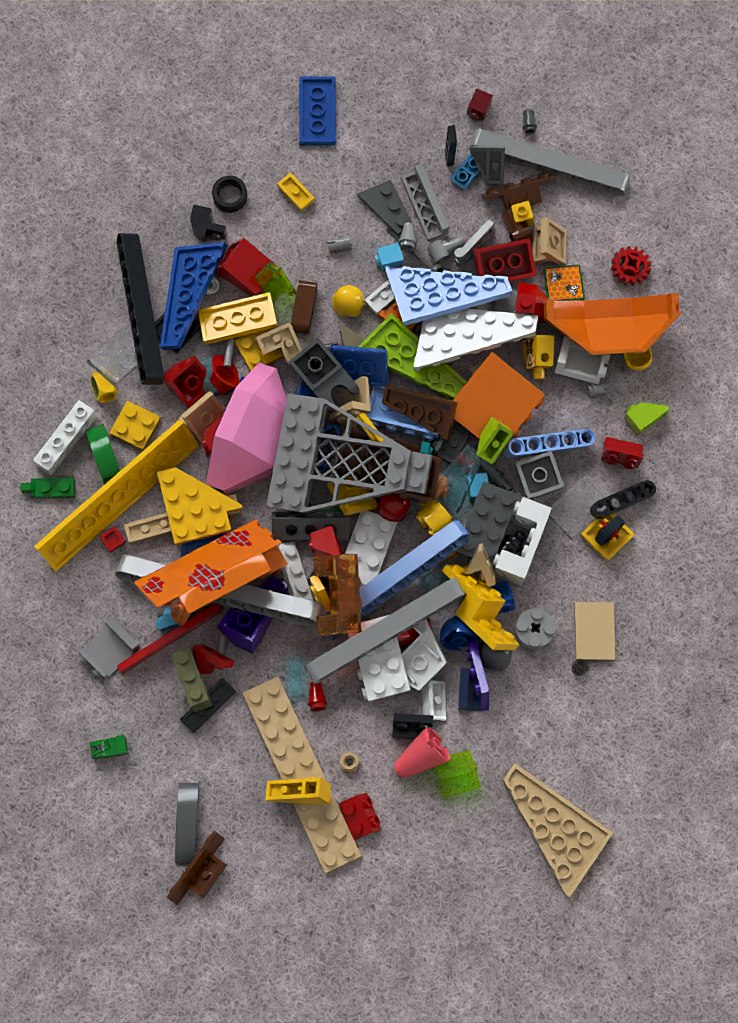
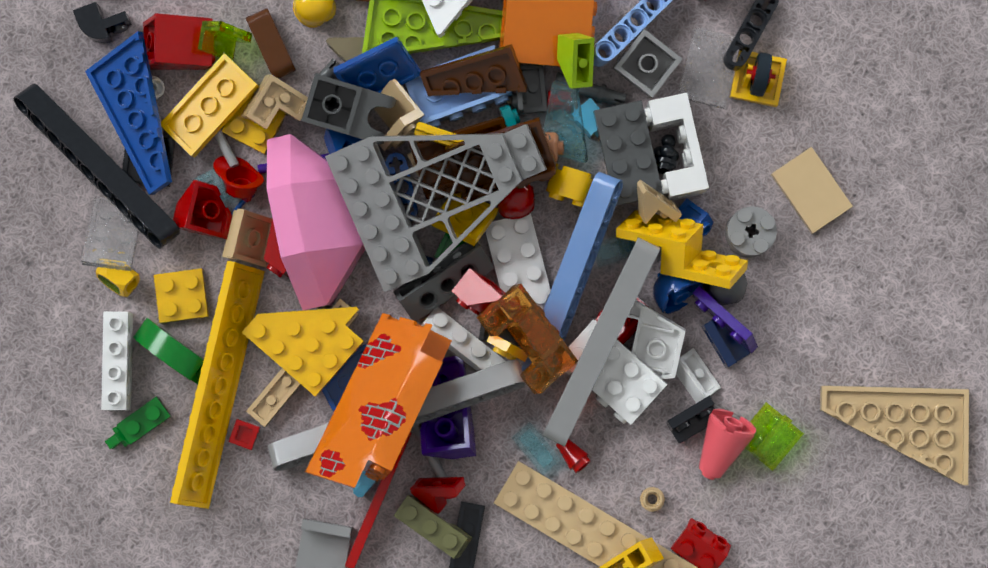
camera: 30 degrees left, 10 degrees up
(580, 667) = (822, 239): clear smoke hinge -> none

